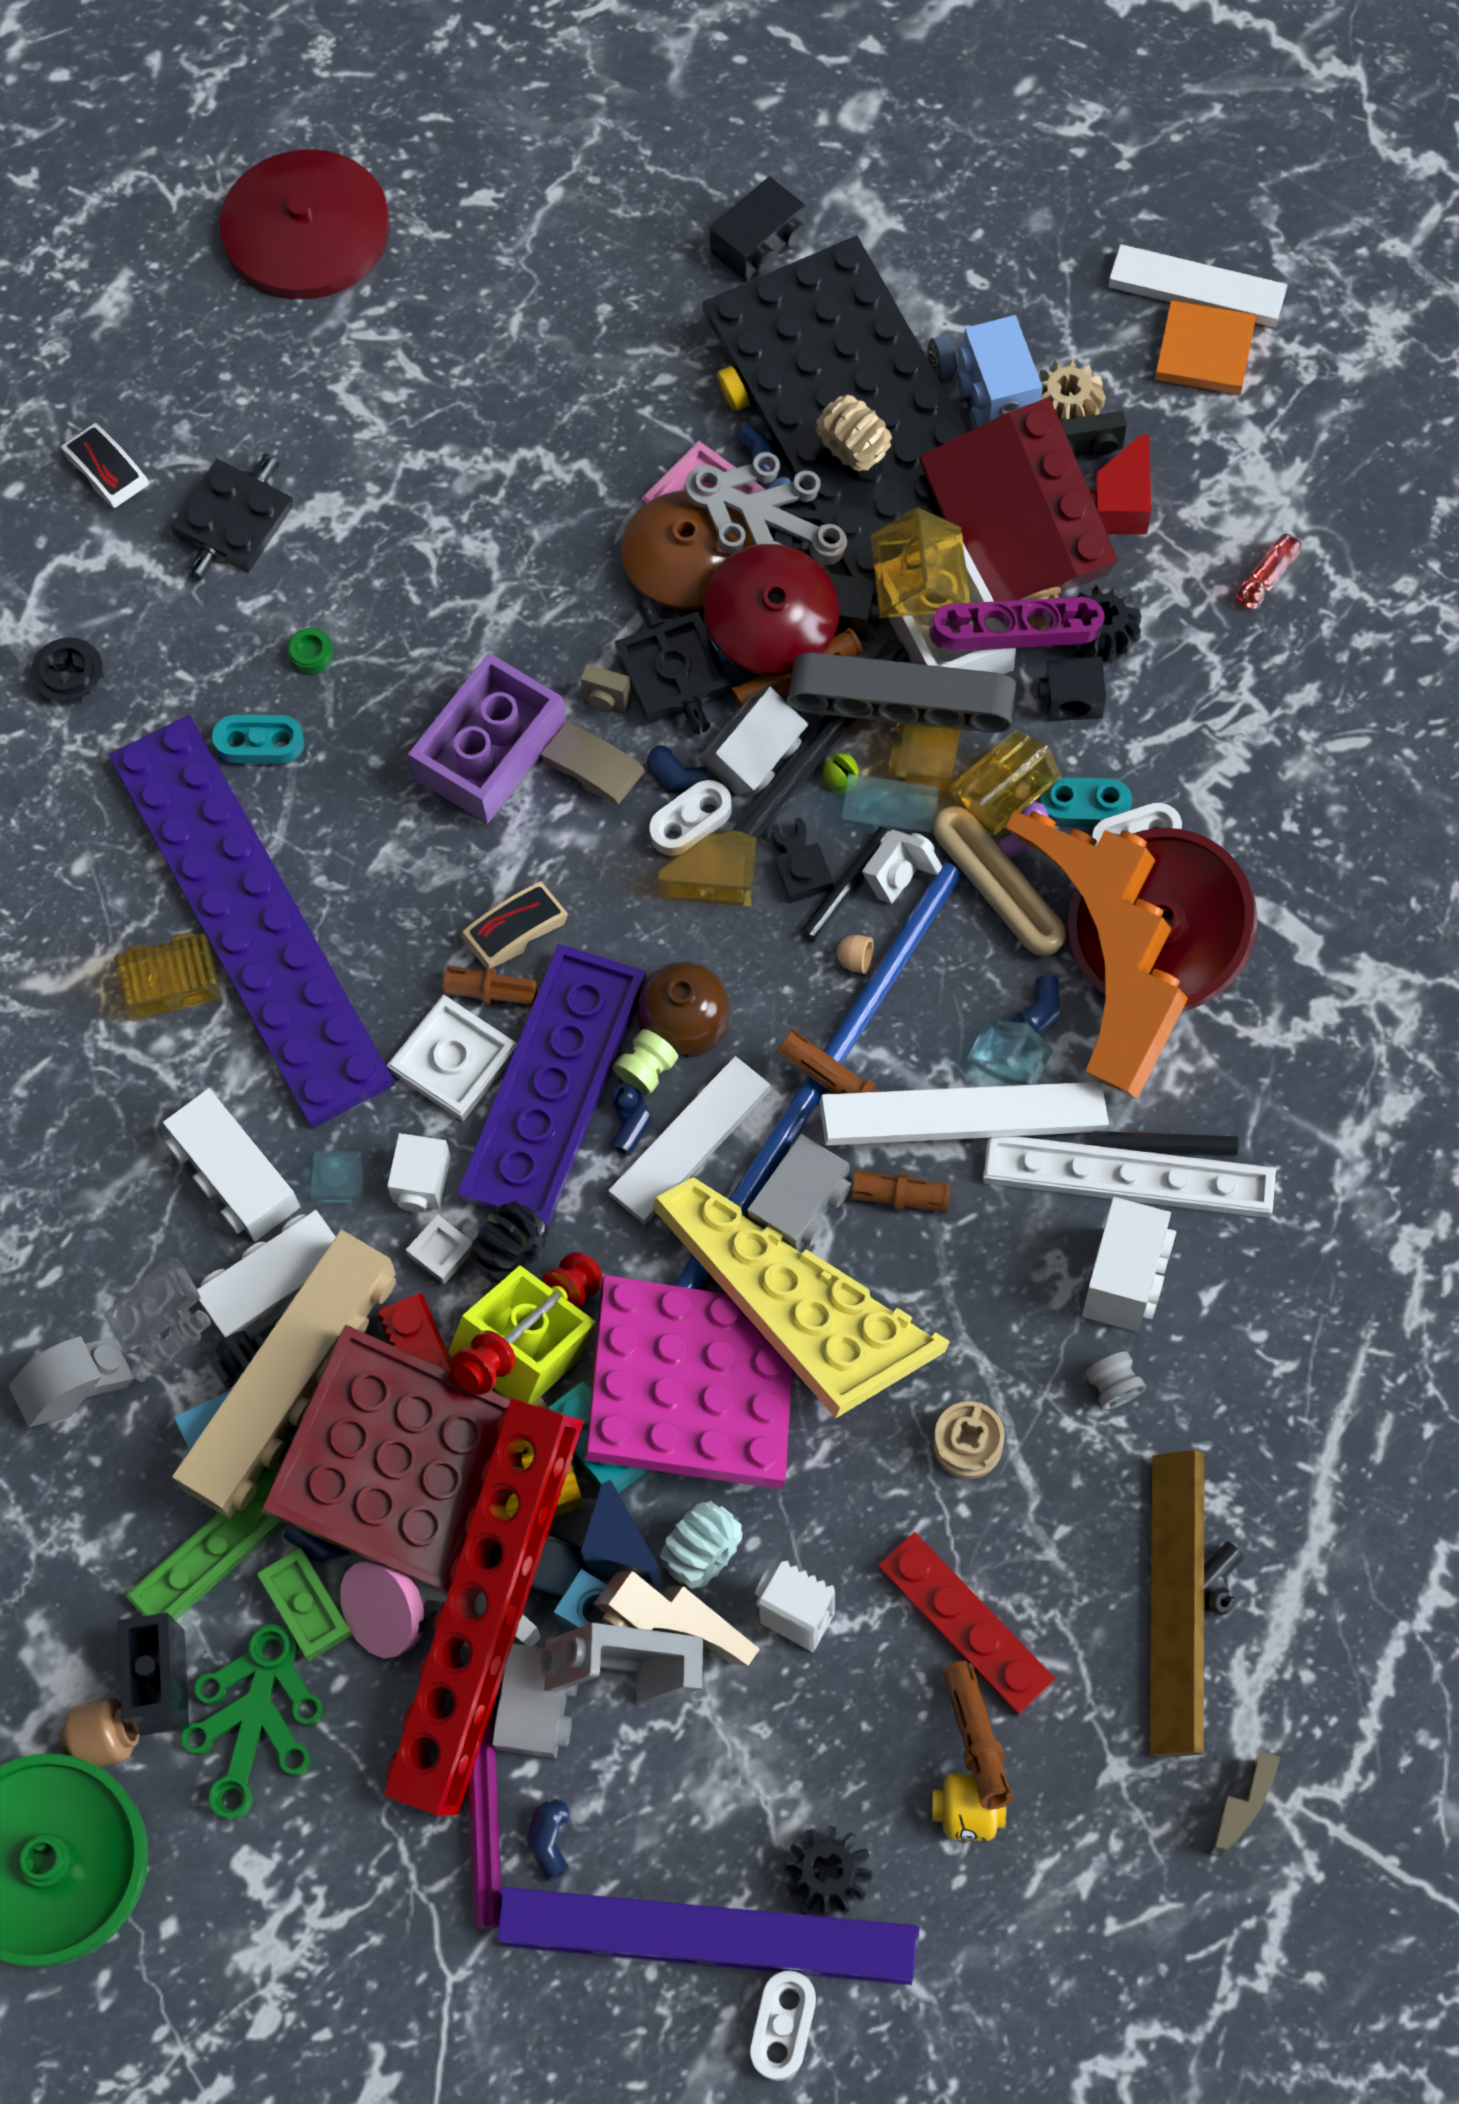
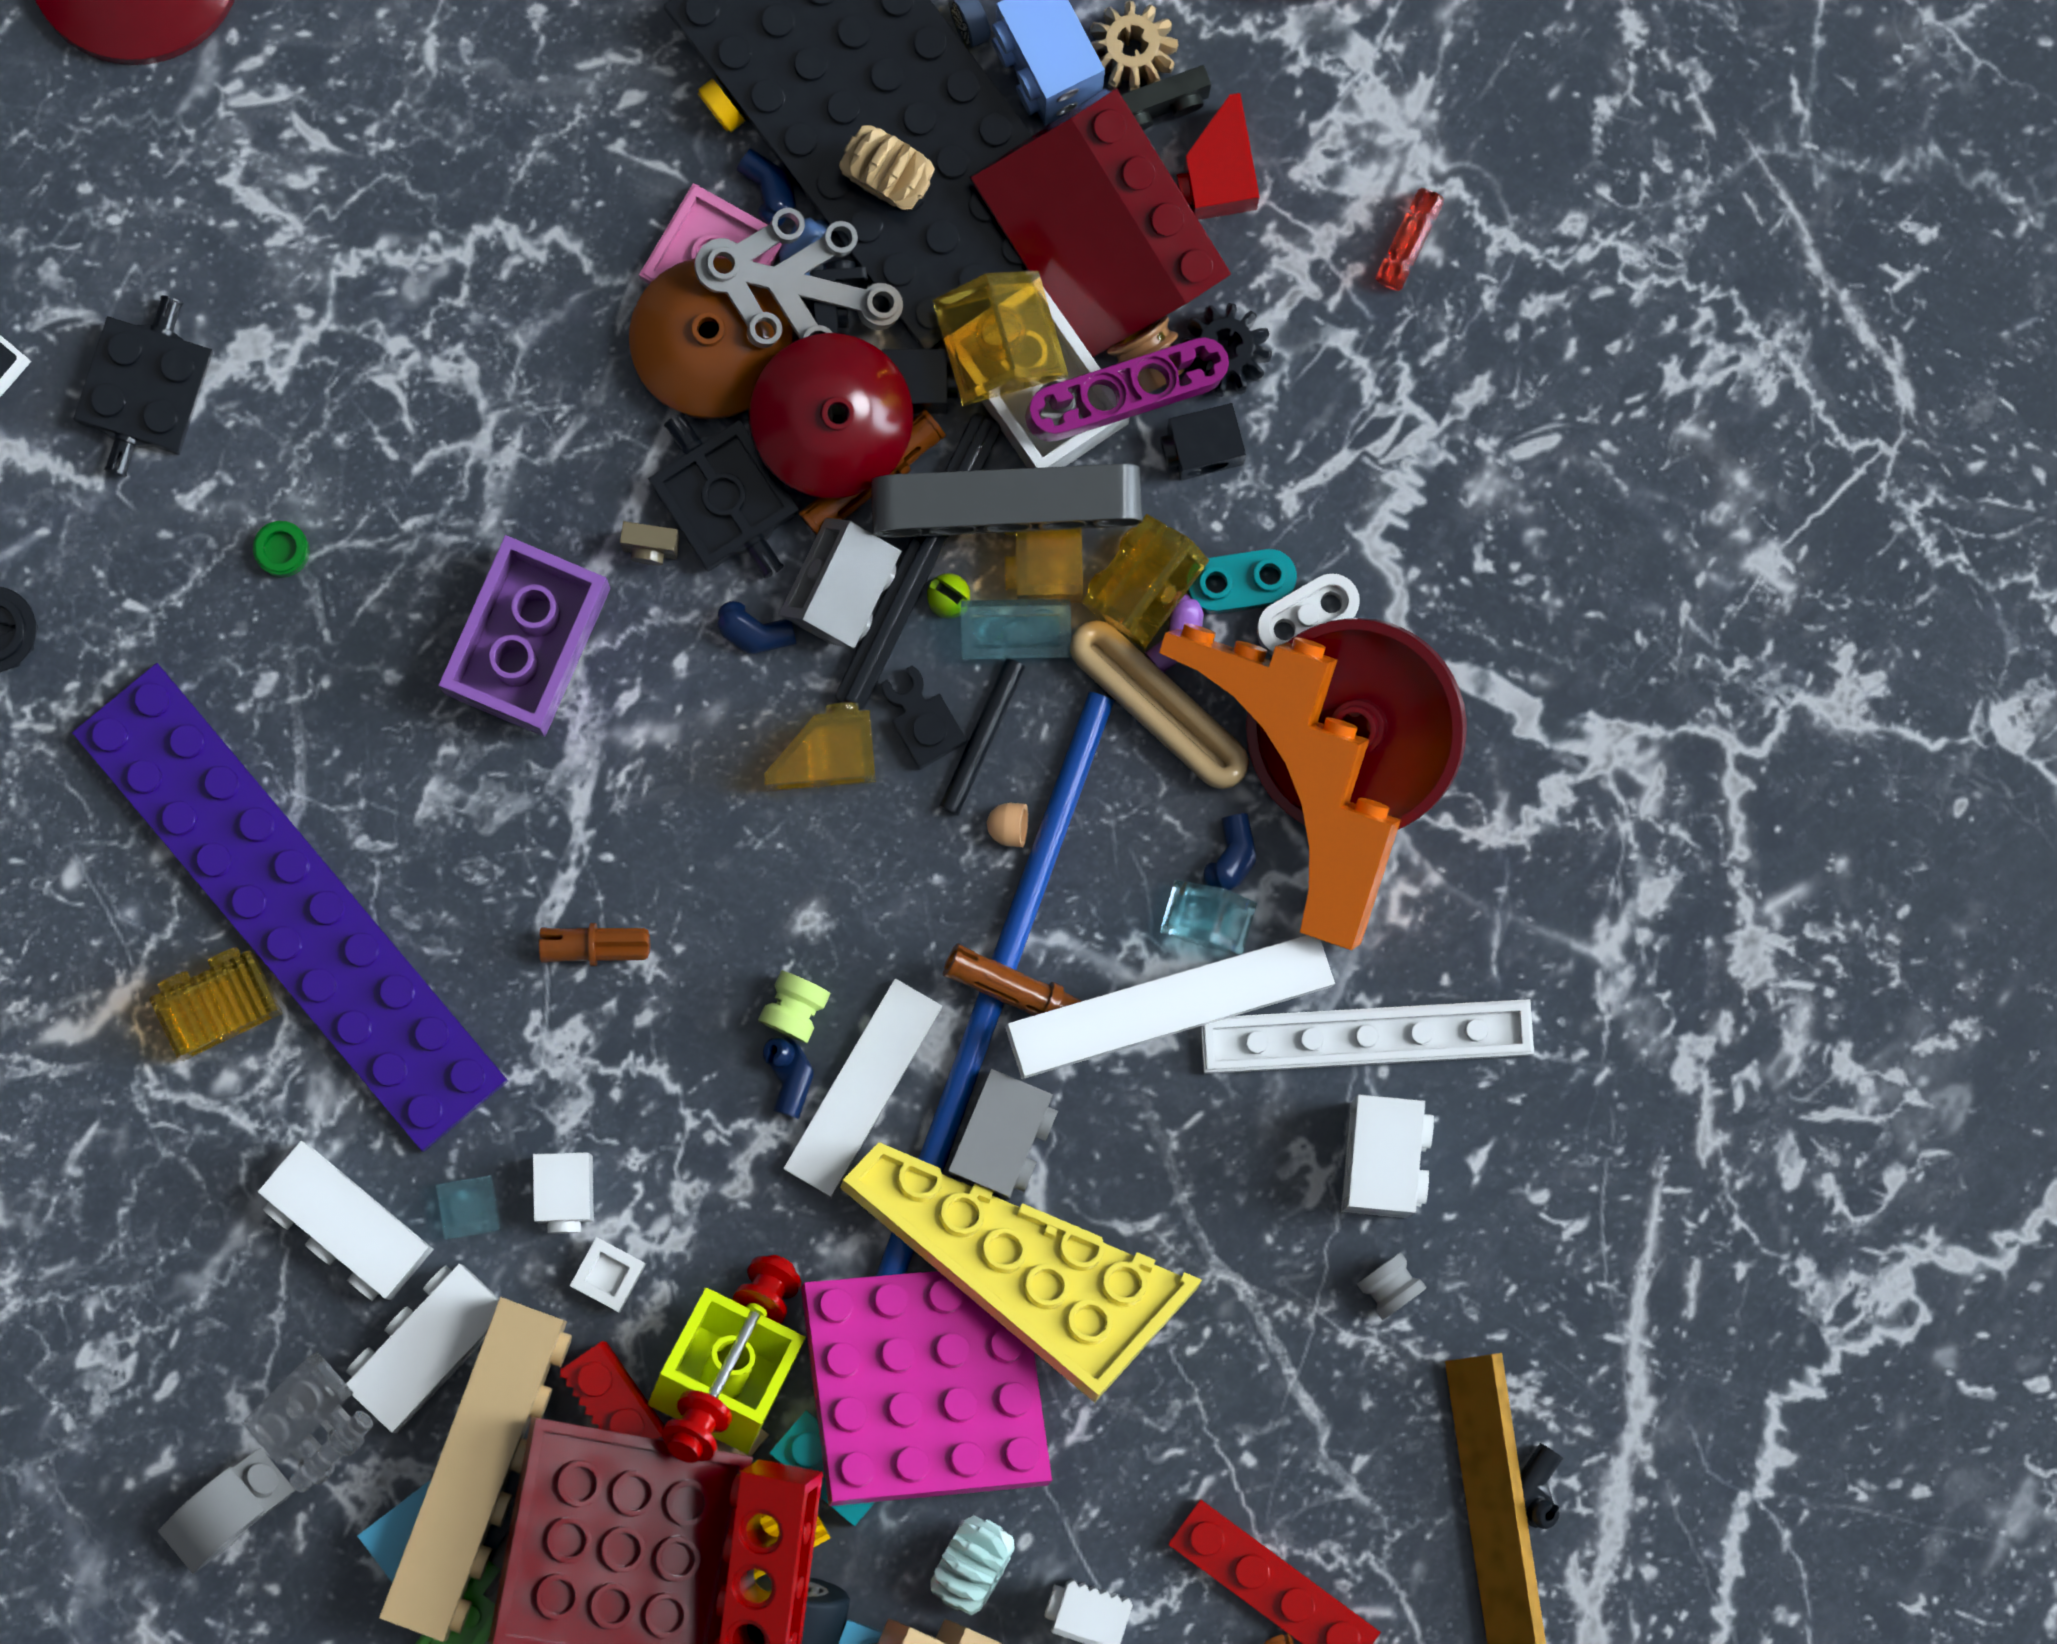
camera: 20 degrees left, 15 degrees up
(235, 1355) = (414, 1450): black gear -> none
(259, 737) = (249, 679): teal plate -> none
(452, 1058) = (569, 1037): white tile -> none
(508, 1240) = (685, 1259): black gear -> none
(512, 924) = (605, 863): slope -> none
(553, 1083) = (693, 1052): dark purple plate -> none
(593, 761) = (653, 638): dark tan slope -> none
(616, 1543) = (882, 1587): dark blue slope -> none
(685, 1007) = (824, 931): reddish brown cylinder -> none
(688, 819) = (783, 689): white plate -> none
(896, 863) = (1035, 706): white bracket -> none
(901, 1191) = (1114, 1105): dark orange pin -> none
(968, 1440) = (1241, 1384): tan wheel -> none
(1167, 1142) = (1401, 989): black bar -> none

